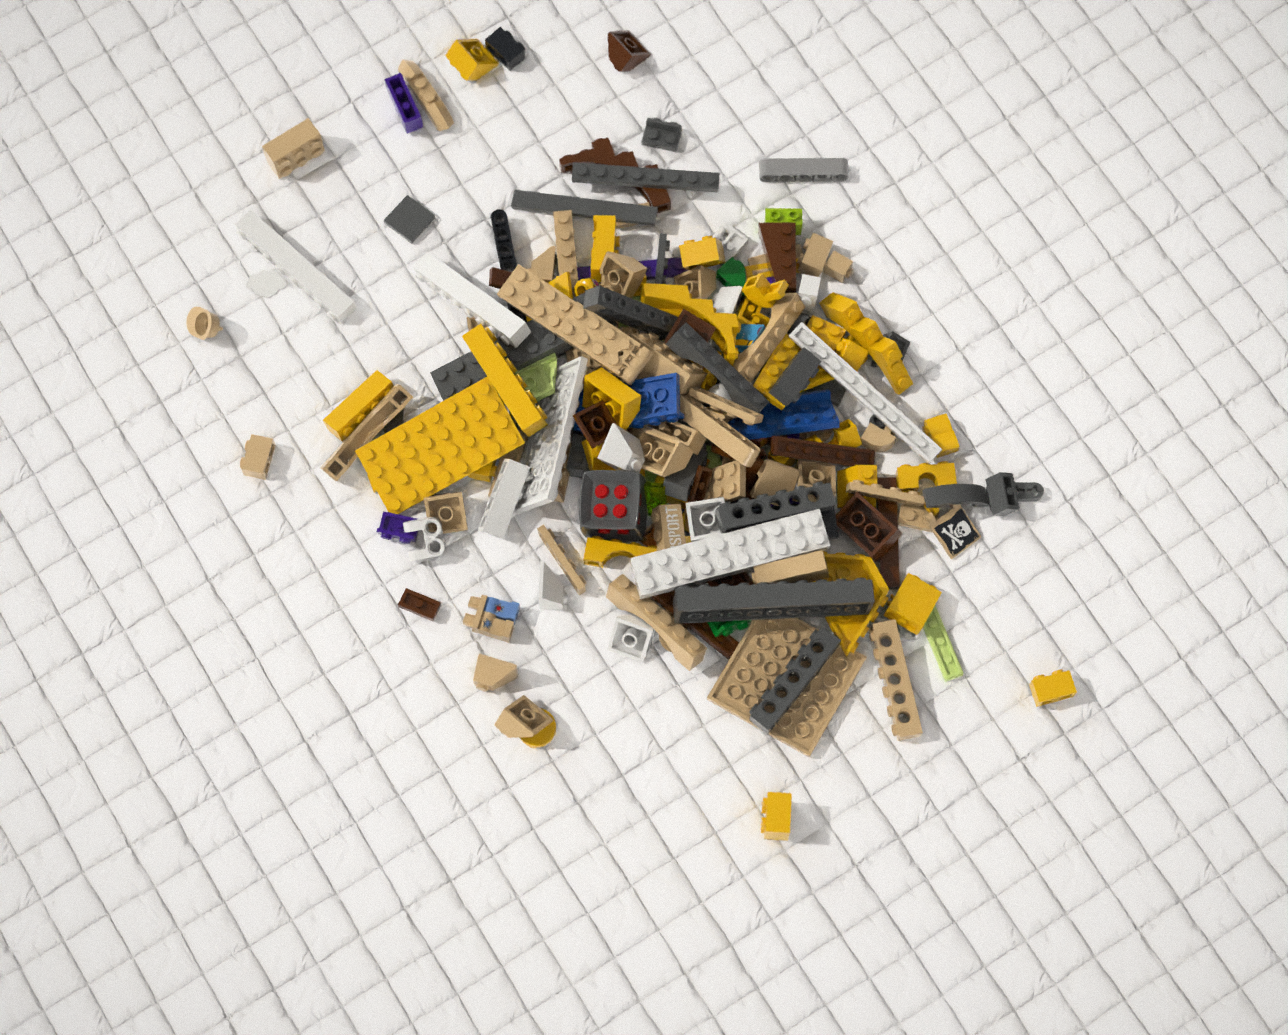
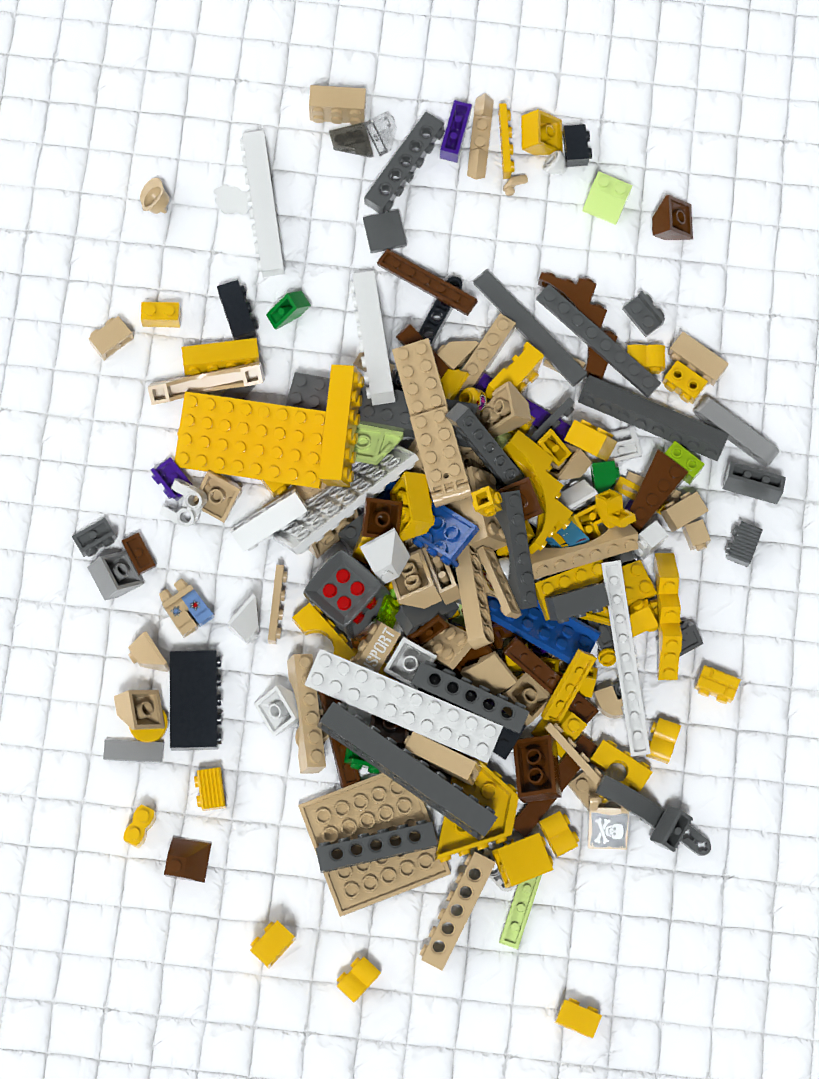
camera: 35 degrees right, 5 degrees up
(284, 409) = (160, 314): none -> yellow brick
(326, 168) = (352, 140): none -> clear smoke wing
(342, 361) = (237, 310): none -> black brick
(346, 145) = (382, 132): none -> clear slope
(373, 619) = (94, 537): none -> dark grey bracket
(377, 114) = (426, 125): none -> dark grey brick
(382, 331) = (288, 309): none -> green slope
(414, 635) = (114, 575): none -> light grey slope
(443, 79) = (505, 134): none -> yellow plate
(476, 230) = (427, 282): none -> reddish brown tile
(479, 109) = (508, 188): none -> tan arm
(500, 73) = (555, 164): none -> white brick
(542, 758) = (133, 751): none -> light grey tile
(559, 681) = (195, 700): none -> black brick
(562, 69) = (607, 198): none -> yellowish green slope
(596, 808) = (142, 821): none -> yellow brick
(628, 739) = (210, 789): none -> yellow brick
(655, 807) = (187, 860): none -> reddish brown slope
(669, 348) = (487, 501): none -> yellow brick
(679, 276) = (555, 447): none -> yellow slope
(693, 160) = (649, 356): none -> yellow brick
(730, 138) = (697, 358): none -> tan brick
(733, 205) = (653, 418): none -> dark grey brick
(735, 162) = (684, 382): none -> yellow brick
(841, 445) = (568, 686): none -> yellow plate
(847, 406) = (607, 657): none -> yellow plate
(849, 196) = (754, 483): none -> dark grey brick
(863, 791) = (358, 979): none -> yellow brick
(878, 246) = (744, 543): none -> dark grey brick
(922, 564) = (558, 833): none -> yellow brick
(946, 363) = (717, 684): none -> yellow brick

